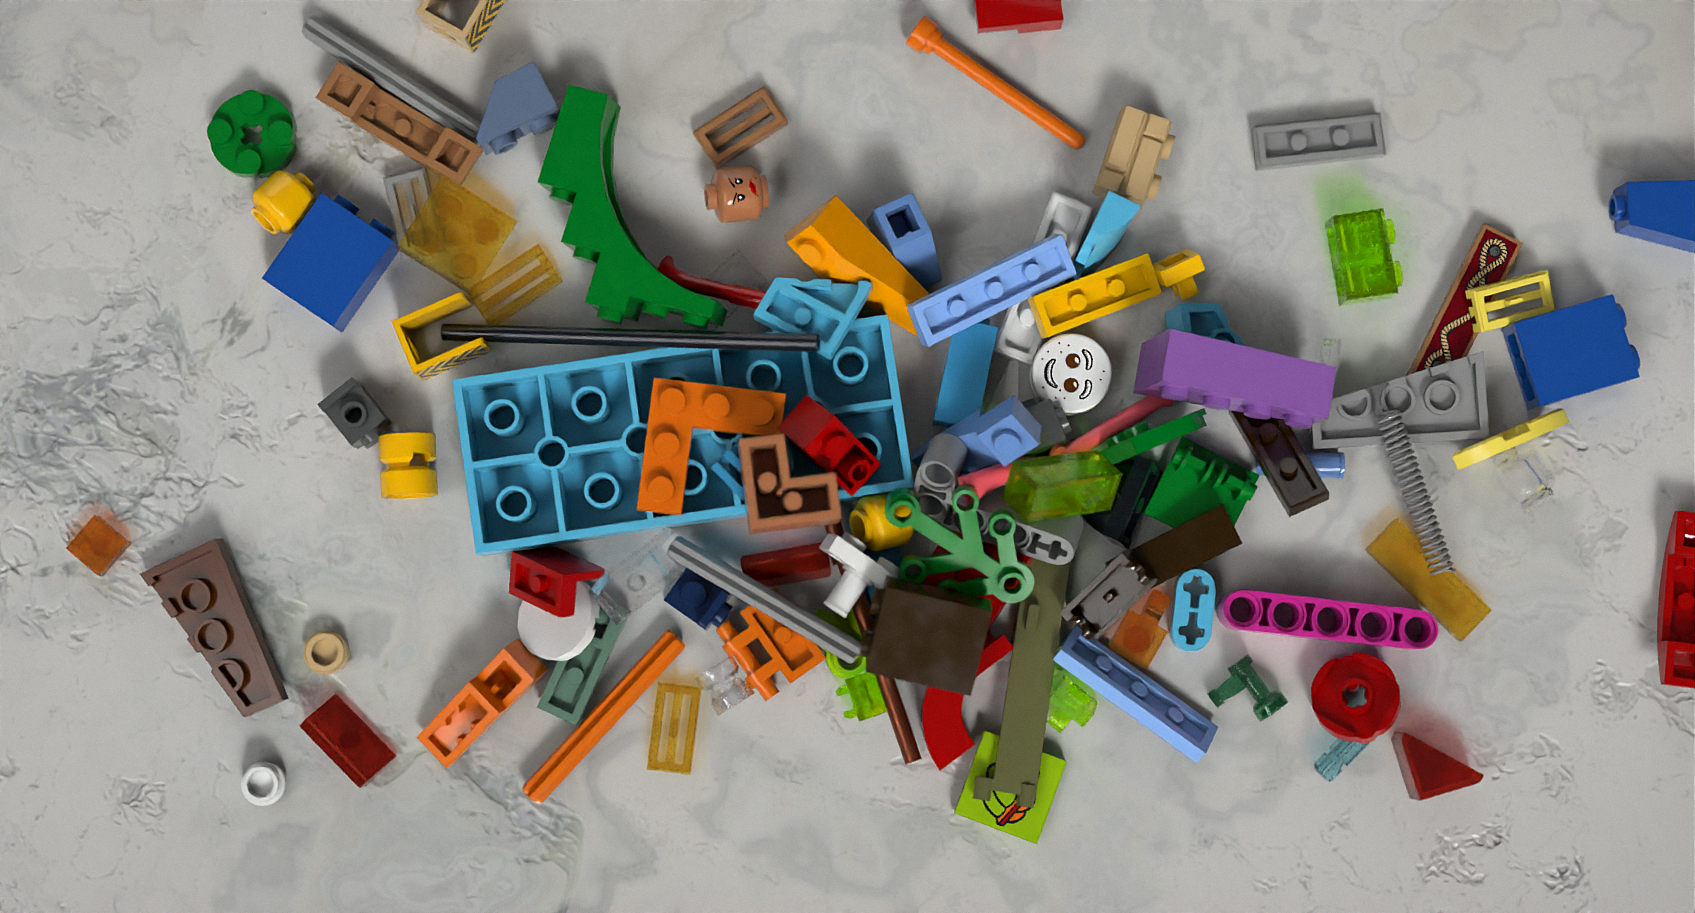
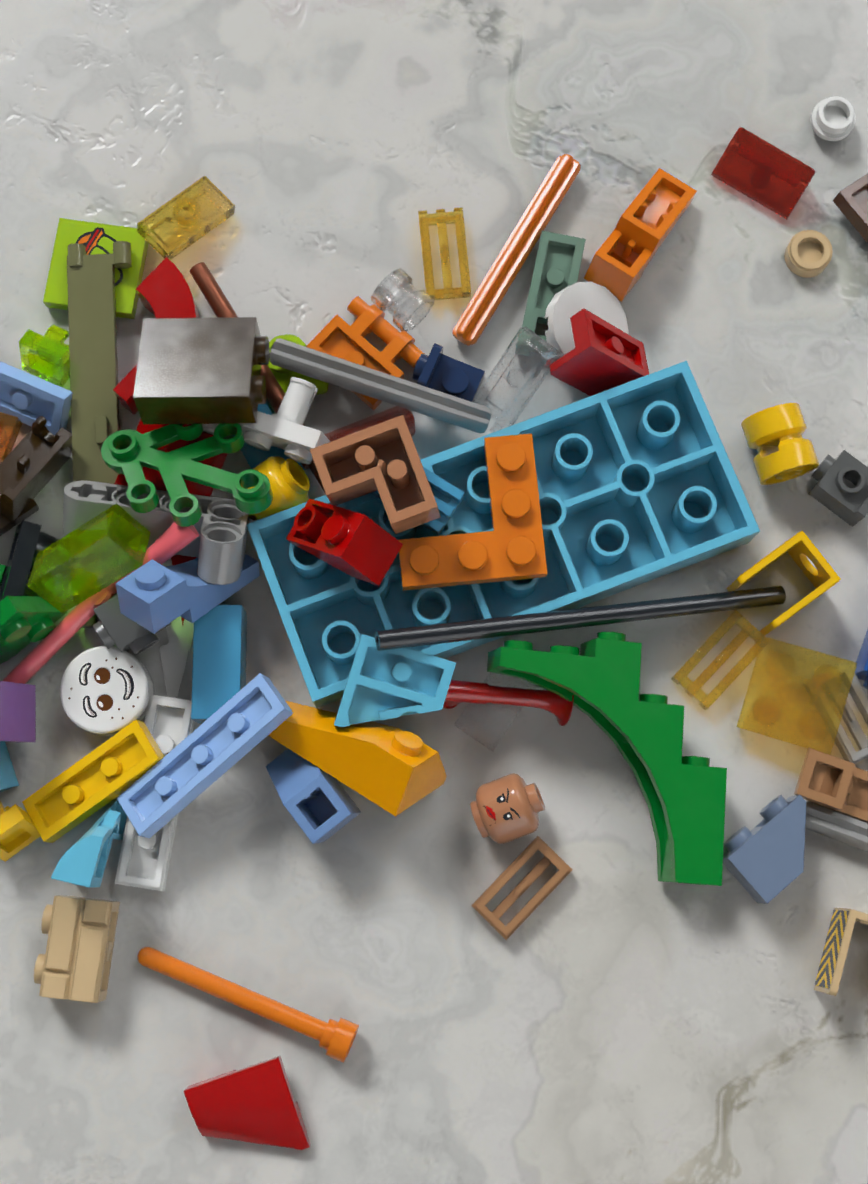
camera: 170 degrees right, 5 degrees down
(864, 696) = (255, 305): clear neon green tile -> none
(914, 816) = (186, 218): none -> clear yellow plate

